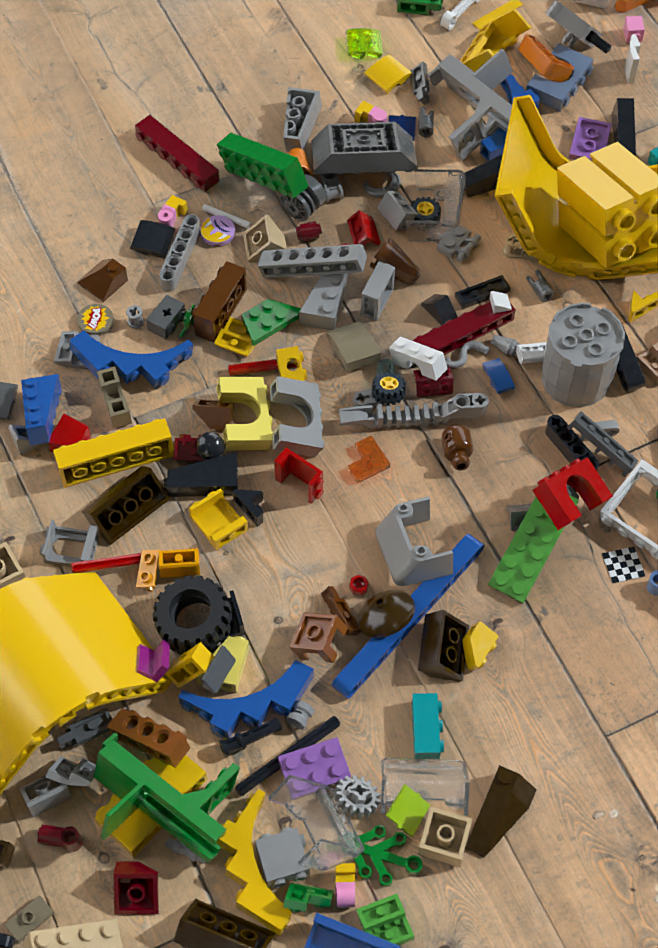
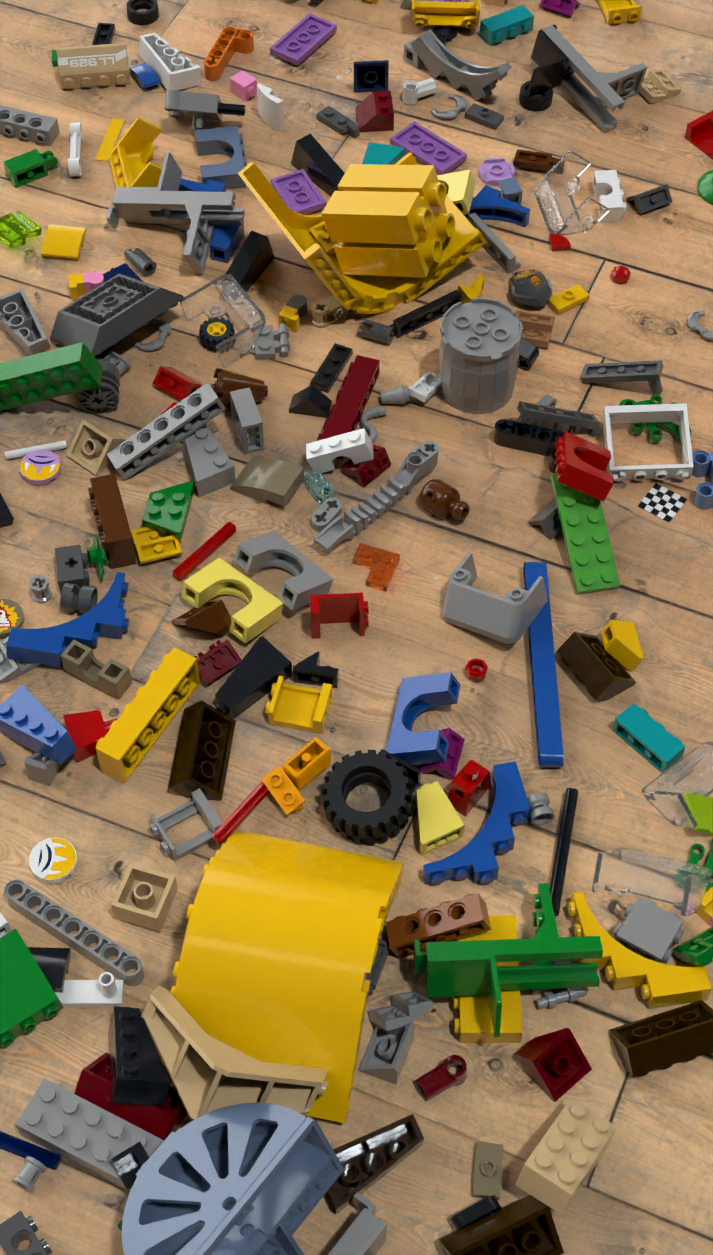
camera: 40 degrees left, 5 degrees down
(150, 339) = (78, 598): none -> dark grey wheel
(153, 663) = (380, 856): magenta panel -> none
(179, 252) = (26, 507): light grey beam -> none
(189, 665) = (411, 838): yellow brick -> none
(210, 445) = (232, 646): black hair -> none
(218, 670) = (440, 823): dark grey slope -> none
(240, 741) = (512, 869): black pin -> none
(267, 661) = (473, 783): none -> red torso
(277, 626) = (448, 768): none -> magenta panel
(287, 356) = (230, 521): yellow brick -> none
(294, 572) = (413, 698): none -> arch
(308, 231) = (128, 413): dark red brick -> none
(316, 634) = (491, 731): dark orange panel -> none
(317, 763) = (594, 833): medium lavender plate -> none
(340, 608) = (484, 701): reddish brown hinge -> none
(358, 798) = (655, 835): light grey gear -> none
(386, 613) = (526, 673): dark brown dish -> none
(388, 388) = (340, 492): black wheel -> none
(396, 210) = (193, 346): light grey hinge -> none
(420, 83) = (102, 231): dark grey hinge -> none
(494, 231) = (293, 311): none -> leg
(499, 302) = (361, 362): white slope -> none
(499, 376) = (418, 424): blue slope -> none
(544, 60) = (195, 149): orange beam -> none
(593, 296) = (425, 314): none -> black hinge

